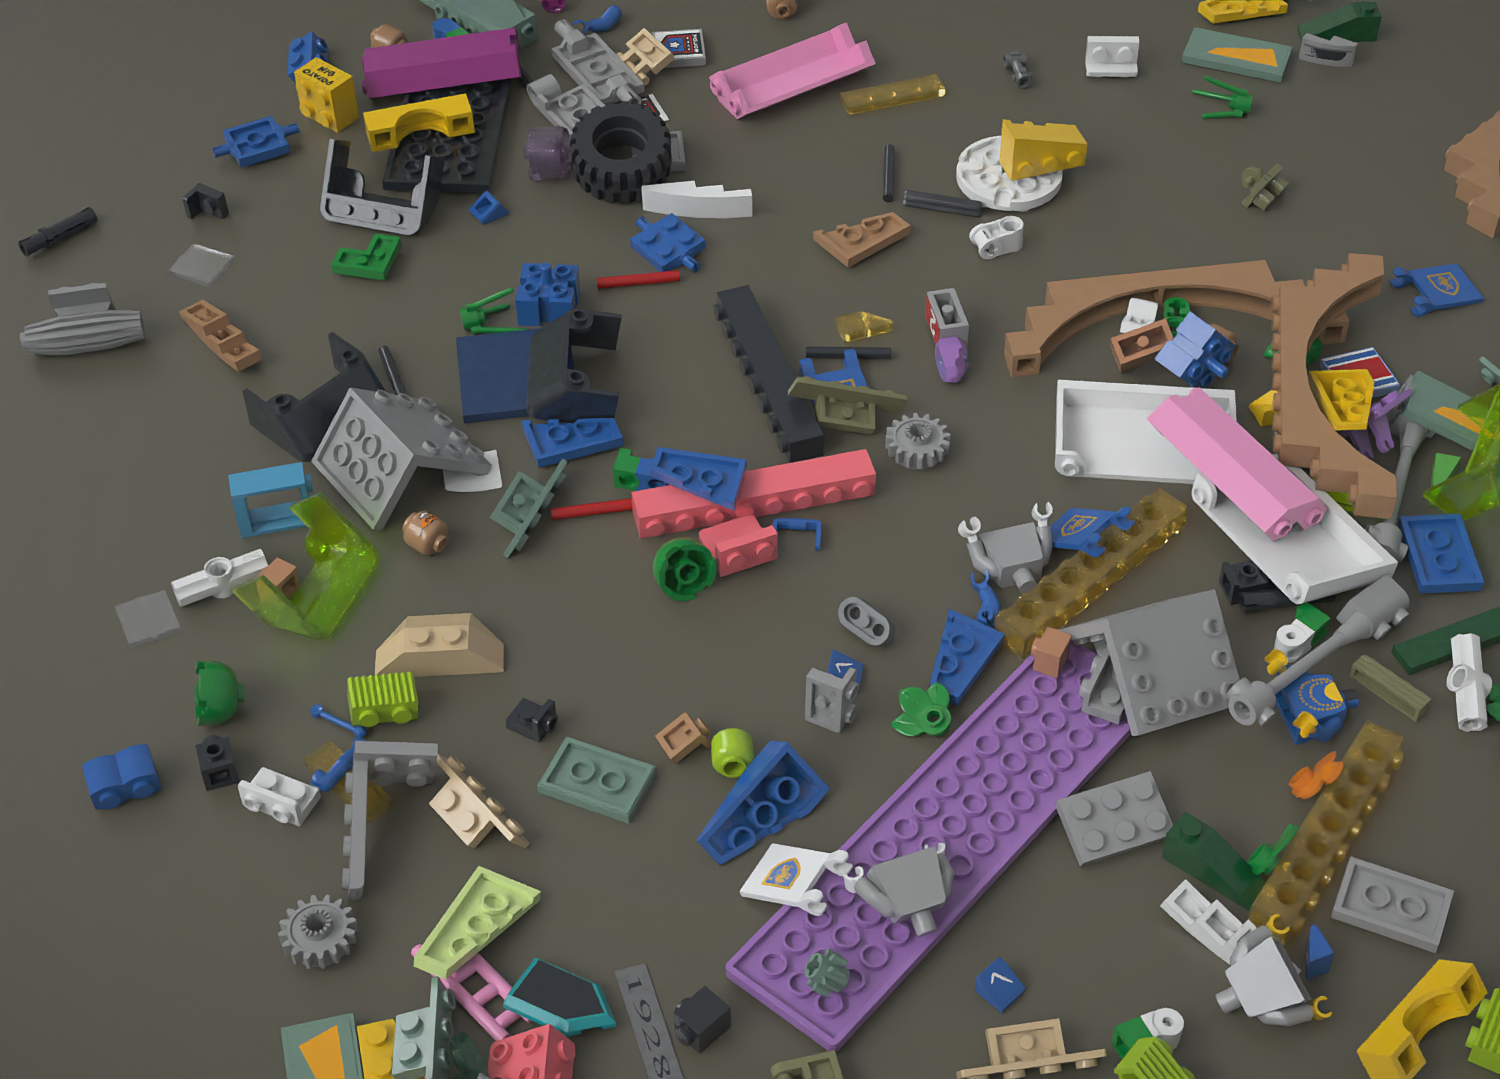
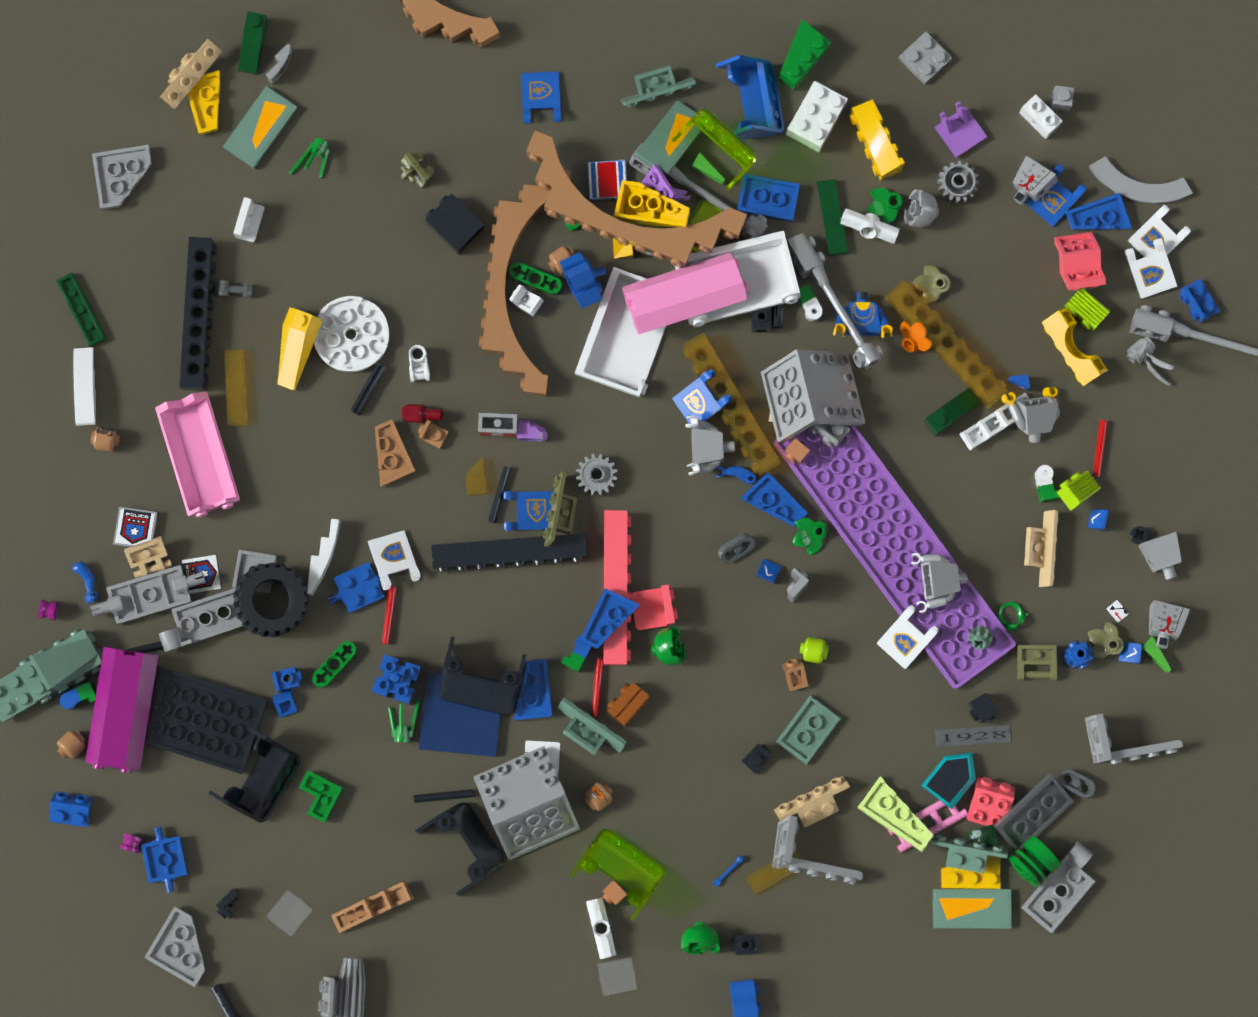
camera: 80 degrees left, 35 degrees up
(139, 172) = (178, 948): none -> light grey plate
(264, 481) = (551, 887): dark azure window -> none
(273, 108) = (131, 843): none -> magenta wheel
(279, 796) = (777, 911): white bracket -> none
(318, 932) = (868, 900): light grey gear -> none
(326, 94) = (136, 801): yellow brick -> none
(329, 780) = (771, 871): blue arm -> none
(382, 699) = (726, 842): lime brick -> none
(390, 125) = (190, 712): yellow arch -> none
(440, 647) = (688, 803): tan wedge -> none
(520, 198) = (281, 685): none -> blue brick
(548, 153) = (249, 650): clear purple brick -> none
(571, 246) = (349, 657): none -> green beam
(579, 541) = (628, 704): none -> dark orange brick
(721, 263) = (393, 555): none -> white flag
(765, 798) = (844, 635): blue wedge -> none
(800, 524) = (643, 566): blue piece -> none
(887, 1054) = (1020, 614): none -> green piece
(888, 173) = (324, 416): black bar -> none
(907, 269) = (432, 434): none -> medium nougat bracket
(930, 252) = (419, 413): none -> dark red arm
(970, 42) = (196, 247): none -> black brick
(976, 122) = (297, 341): none -> yellow wedge
(999, 985) = (997, 549): blue slope -> none
(1040, 149) = (351, 307): yellow wedge -> none
(1114, 818) = (911, 454): light grey plate -> none
(1140, 345) = (558, 308): nougat brick -> none
(1208, 234) = (454, 223): none -> black brick
(1265, 856) = (956, 379): green plate -> none
(1390, 687) = (857, 268): olive piece -> none
(1392, 904) = (998, 329): light grey plate -> none
(1420, 794) = (928, 283): none -> olive plate

